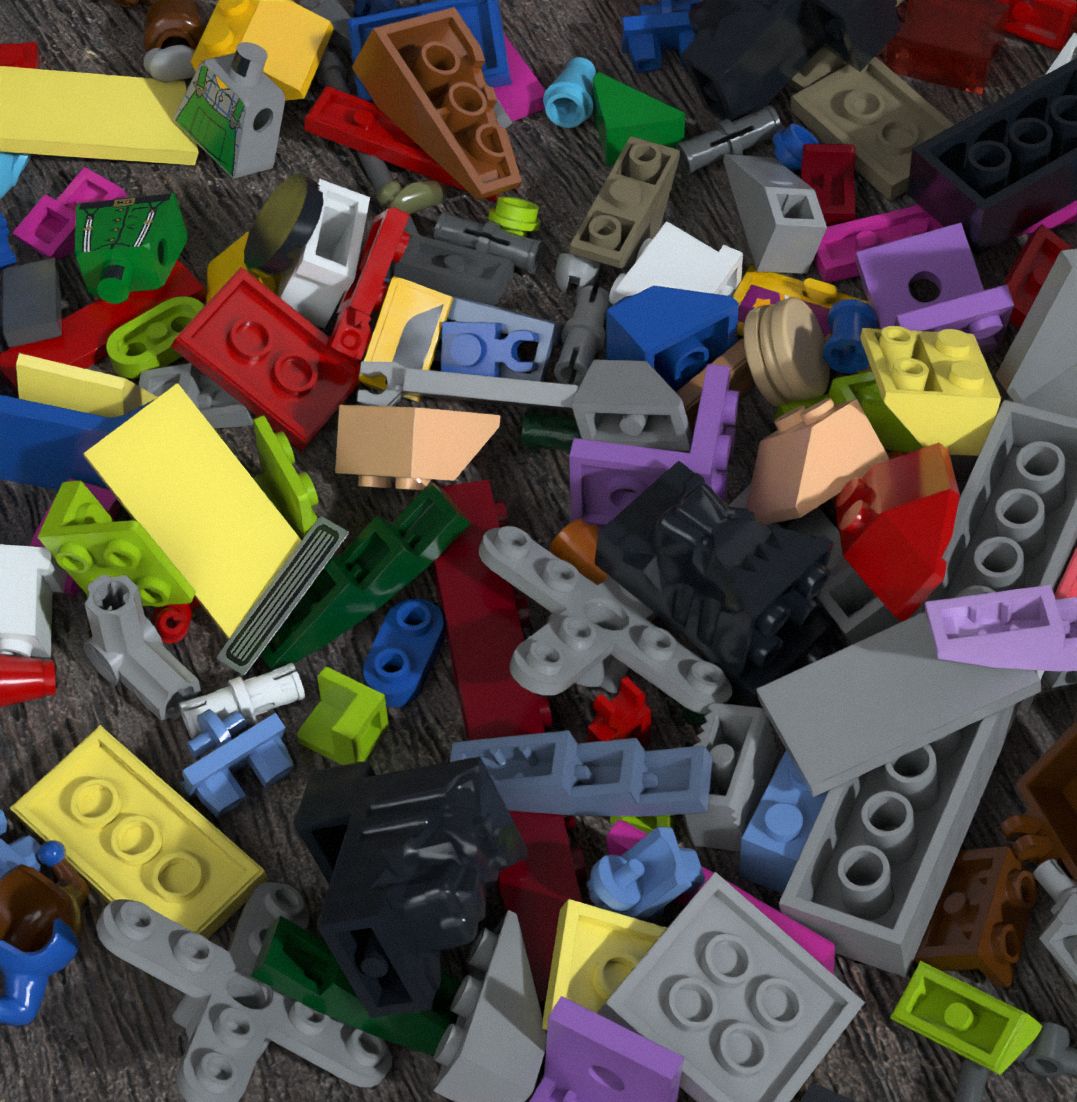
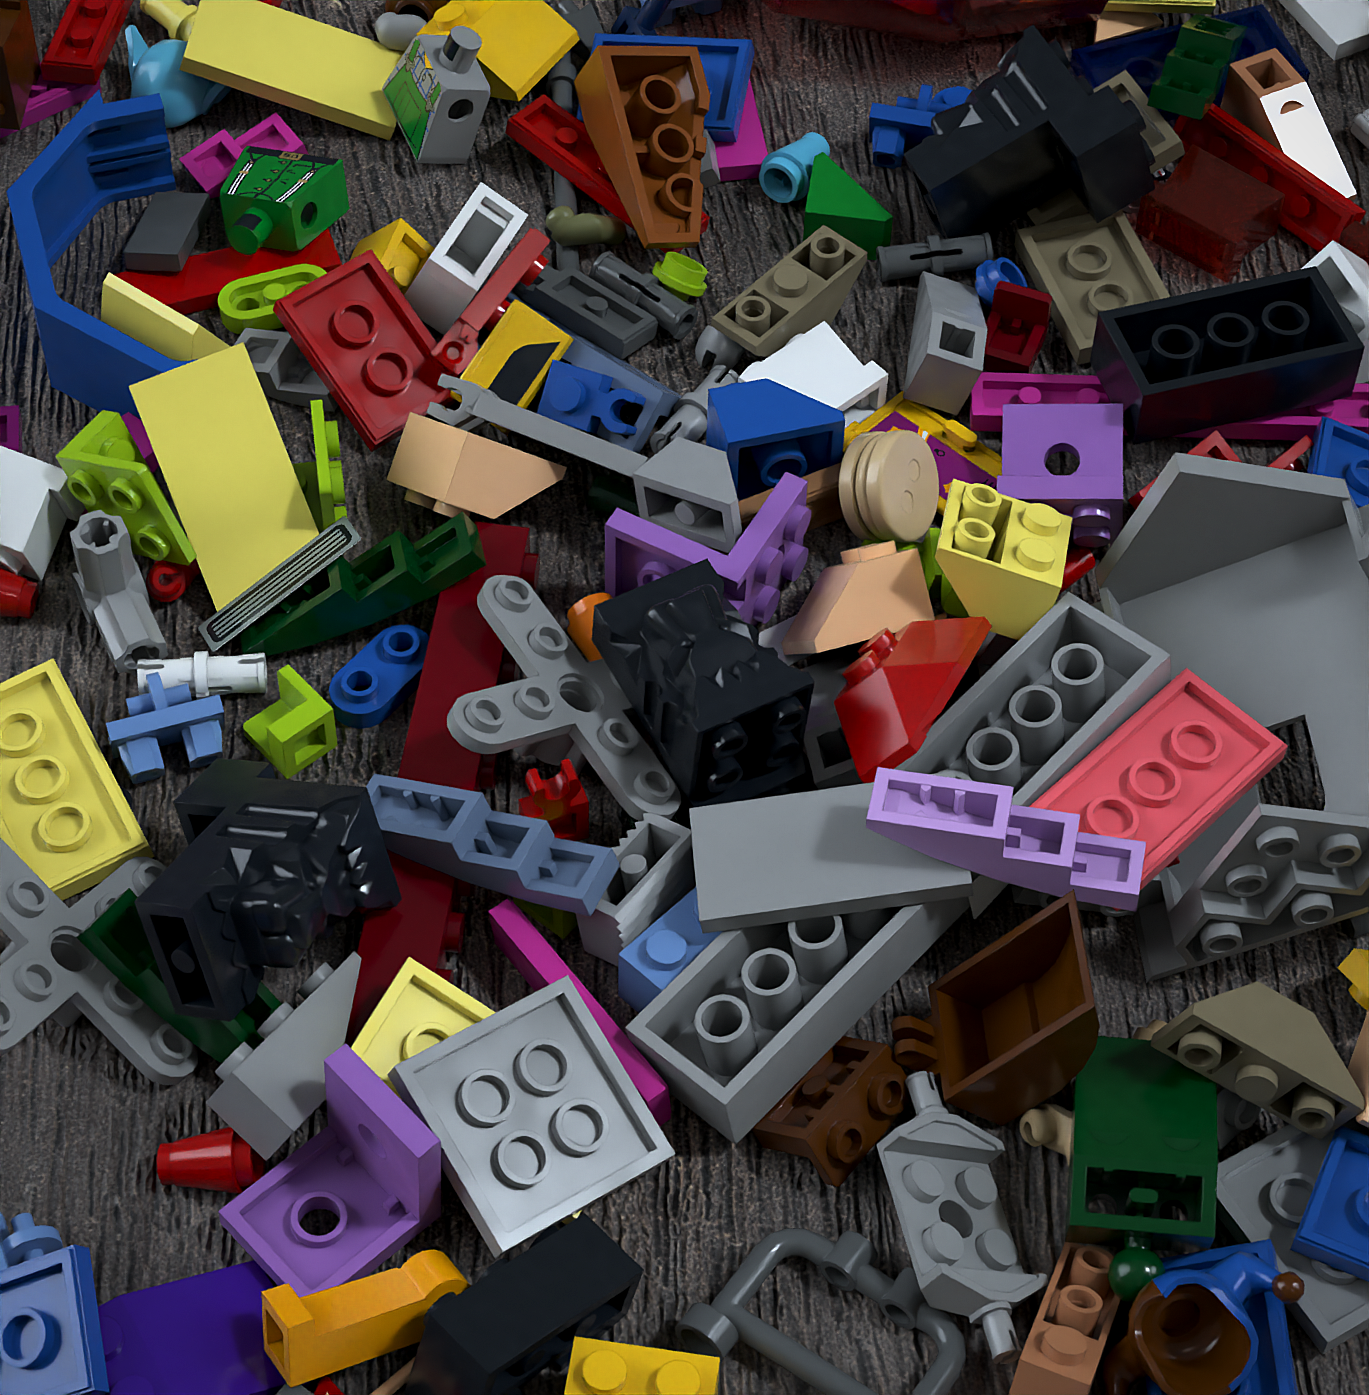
camera: 15 degrees right, 0 degrees up
(283, 222) = (429, 219): black tile -> none
(645, 876) = (499, 961): medium blue hips -> none
(844, 348) = (968, 467): blue bush -> none
(964, 1019) = (773, 1203): lime slope -> none

